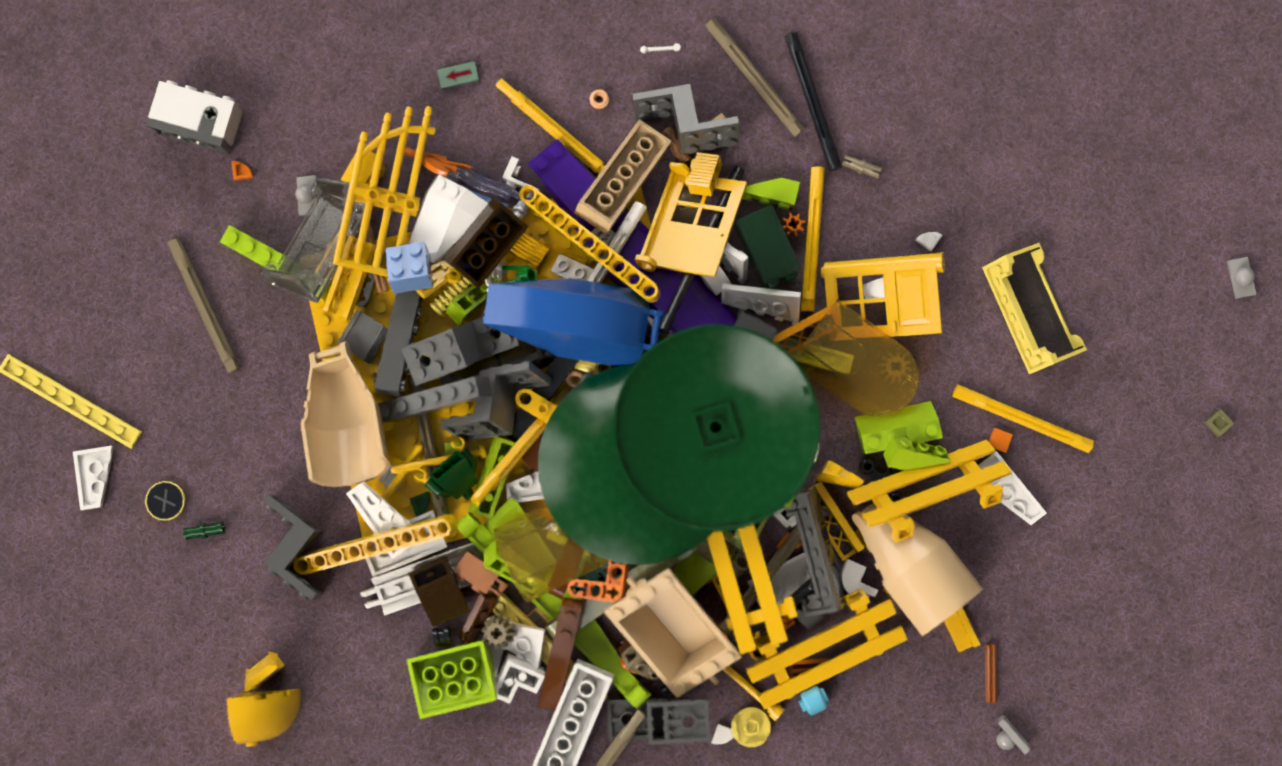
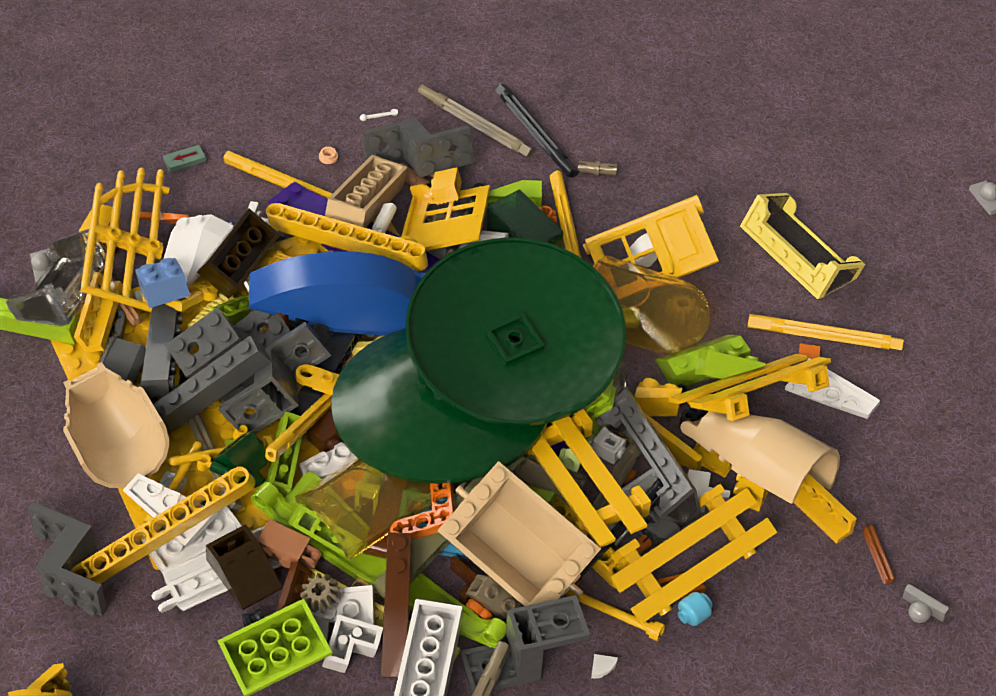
camera: 15 degrees left, 35 degrees down
(750, 727) = (632, 650): light yellow tile -> none

